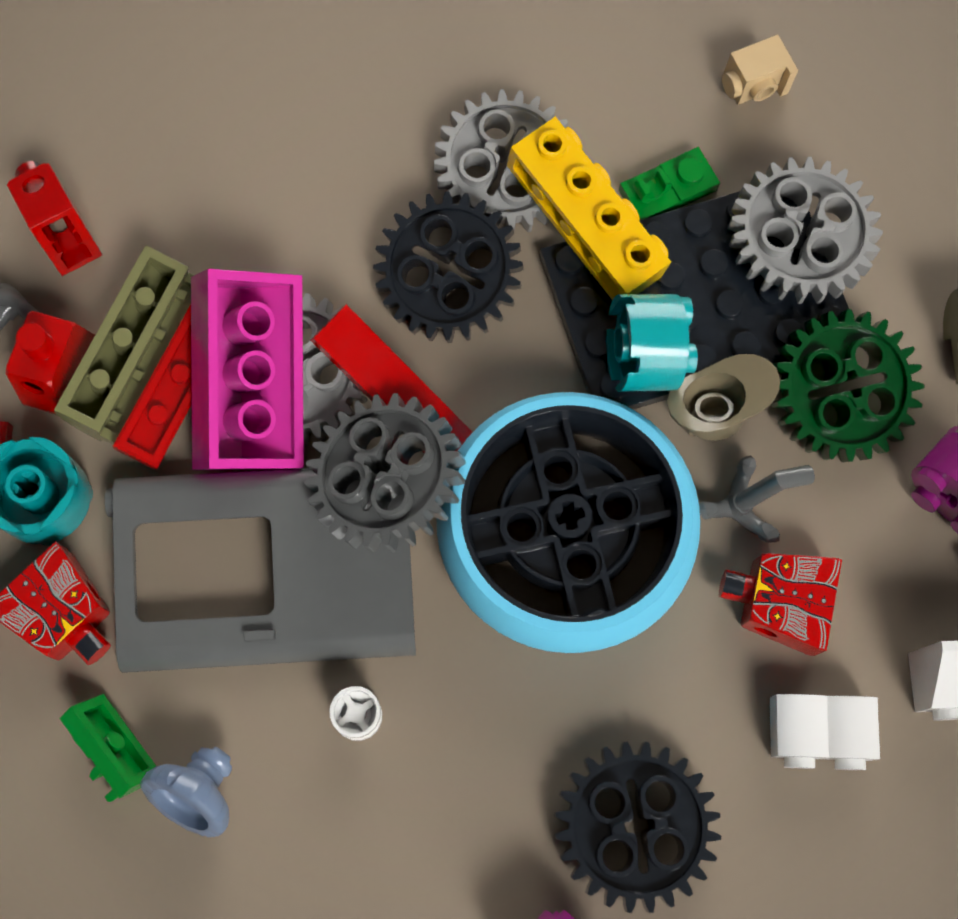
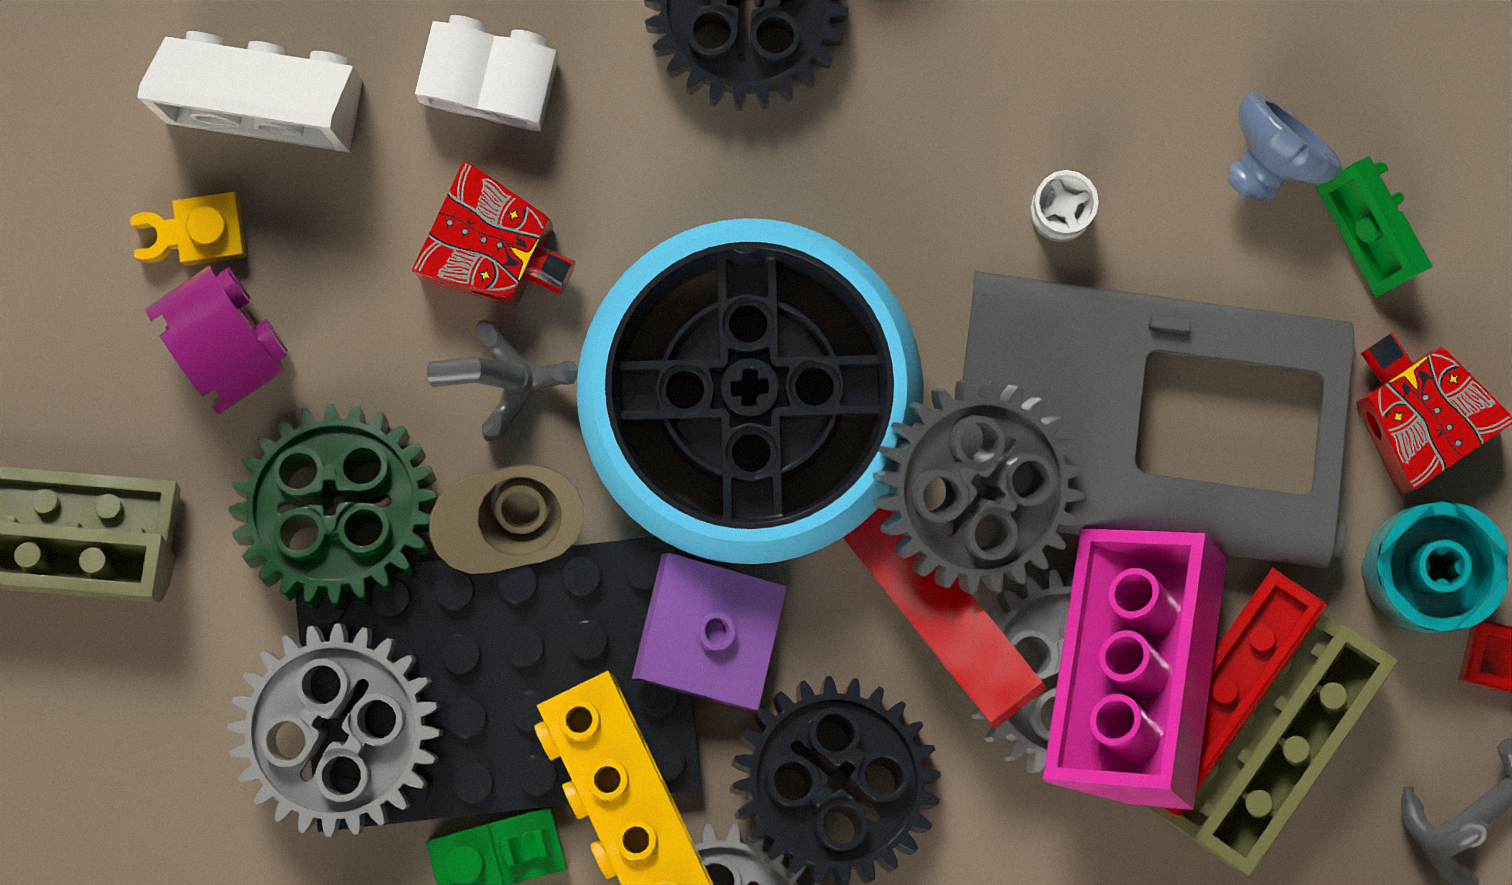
camera: 160 degrees left, 10 degrees up
(45, 359) = (1394, 750): red torso -> none
(558, 348) = (709, 632): none -> medium lavender plate
(650, 342) = (591, 597): teal brick -> none

